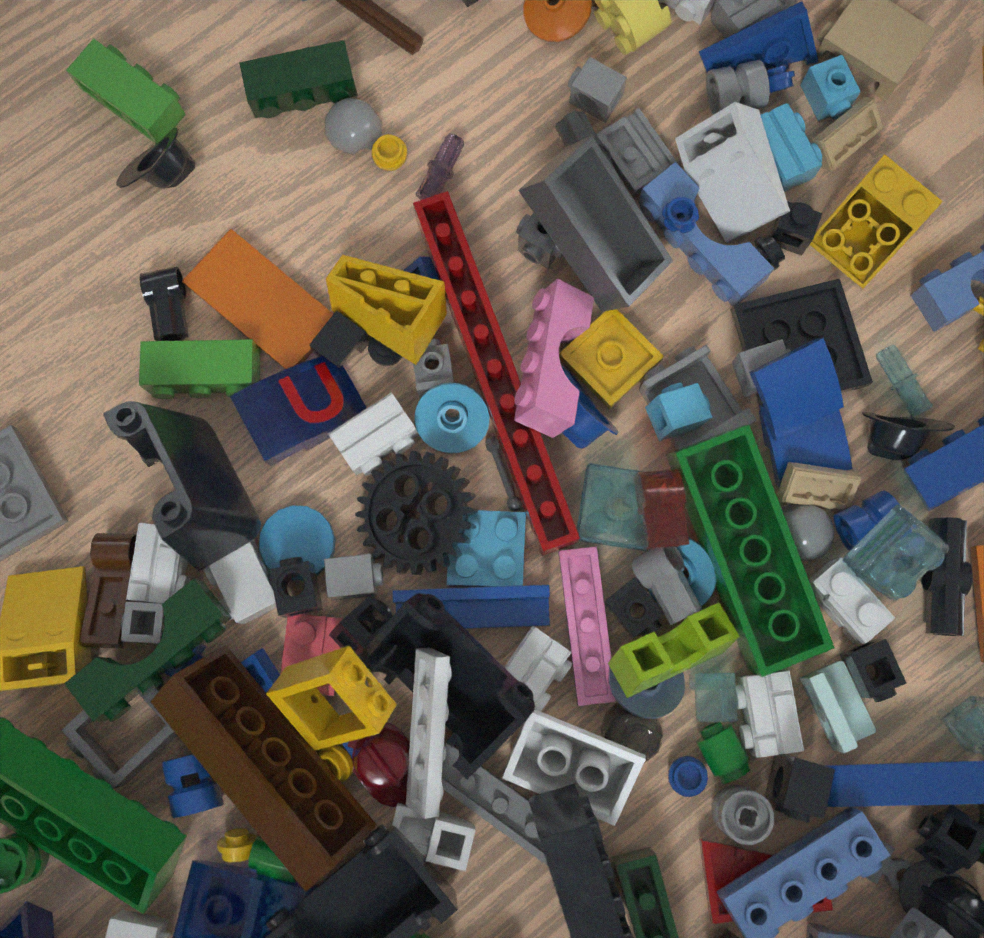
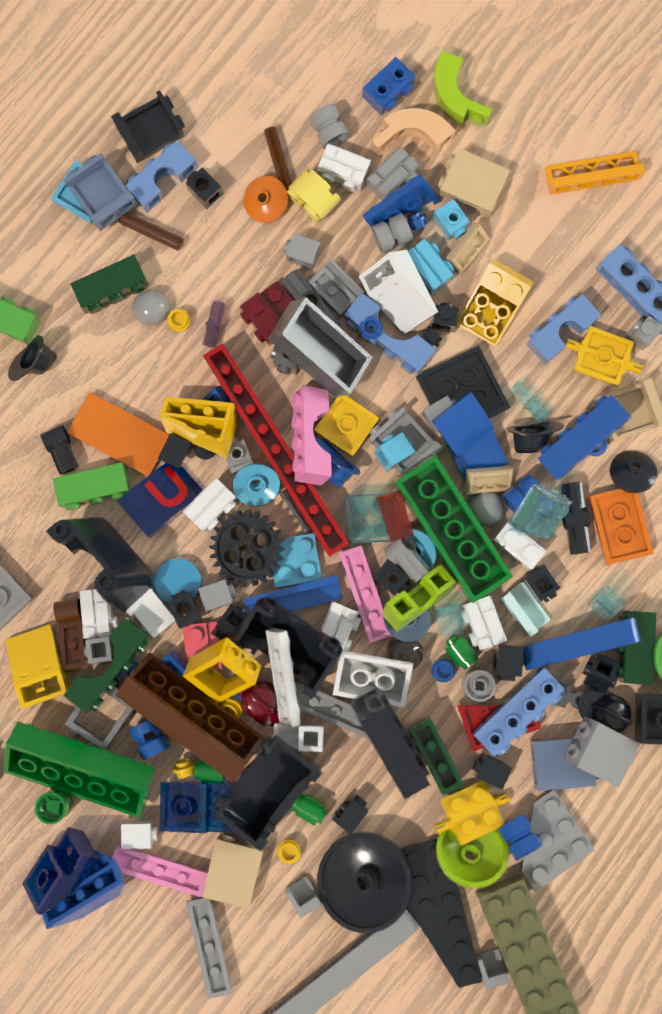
camera: 10 degrees left, 5 degrees up
(516, 161) = (265, 310): none -> dark red plate

